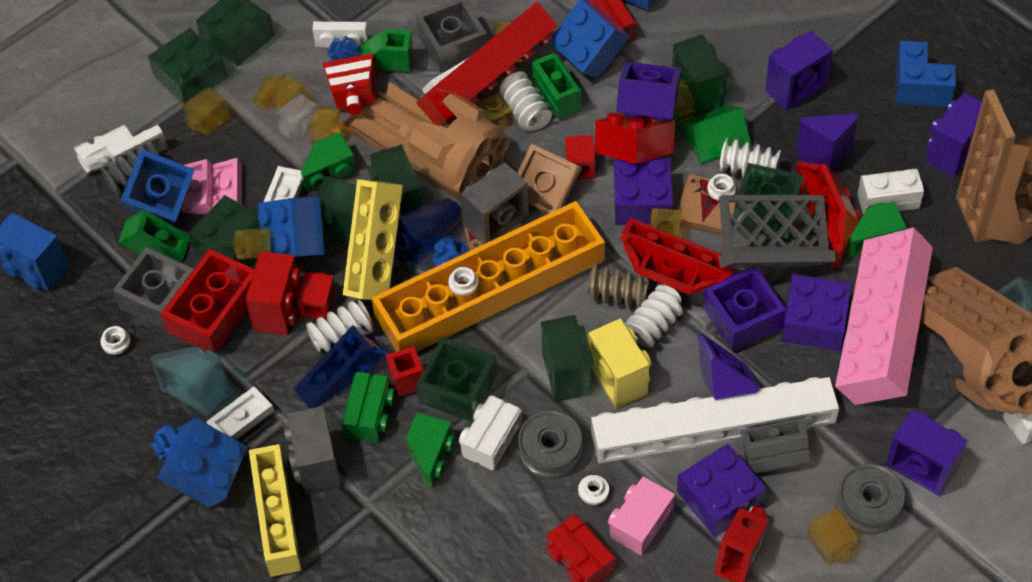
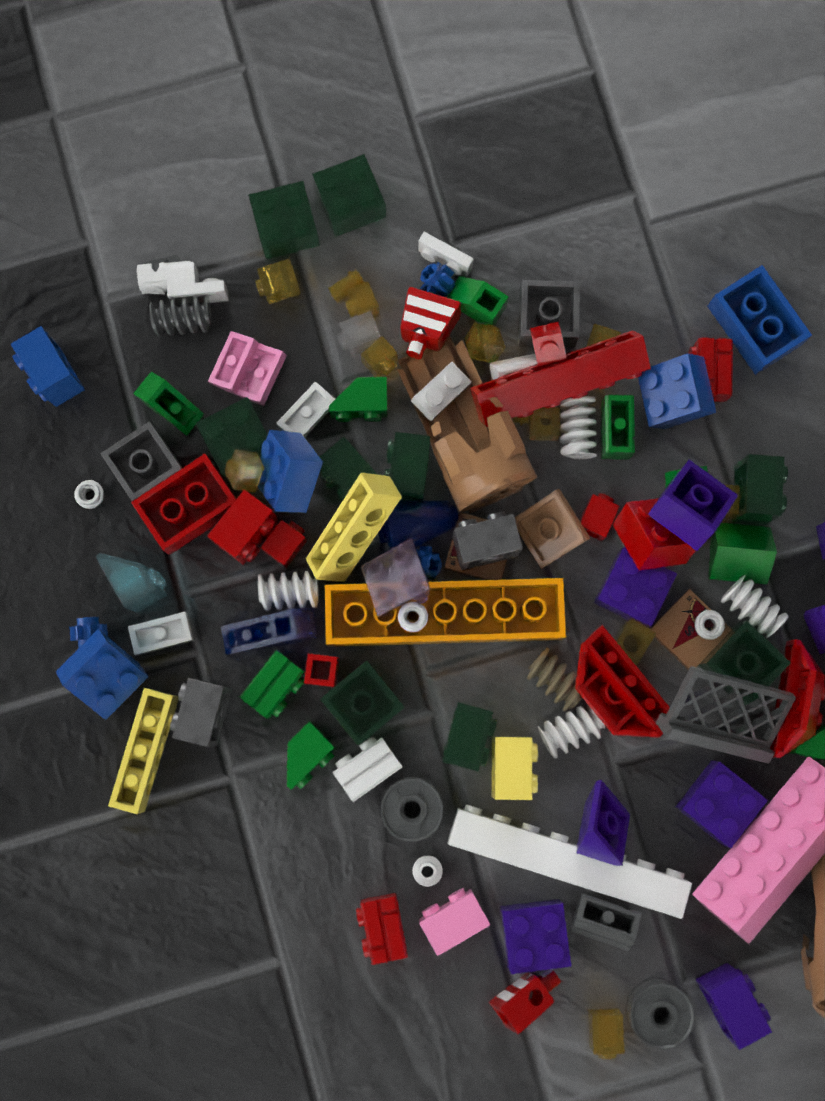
camera: 25 degrees right, 25 degrees up
(156, 186) = (188, 356): blue brick -> none
(388, 125) = (441, 391): none -> white plate
(409, 75) = (484, 342): none -> clear yellow plate
(432, 258) = (396, 578): none -> clear purple hinge
(463, 43) = (548, 344): none -> brick
(744, 308) = (656, 768): dark purple brick -> none

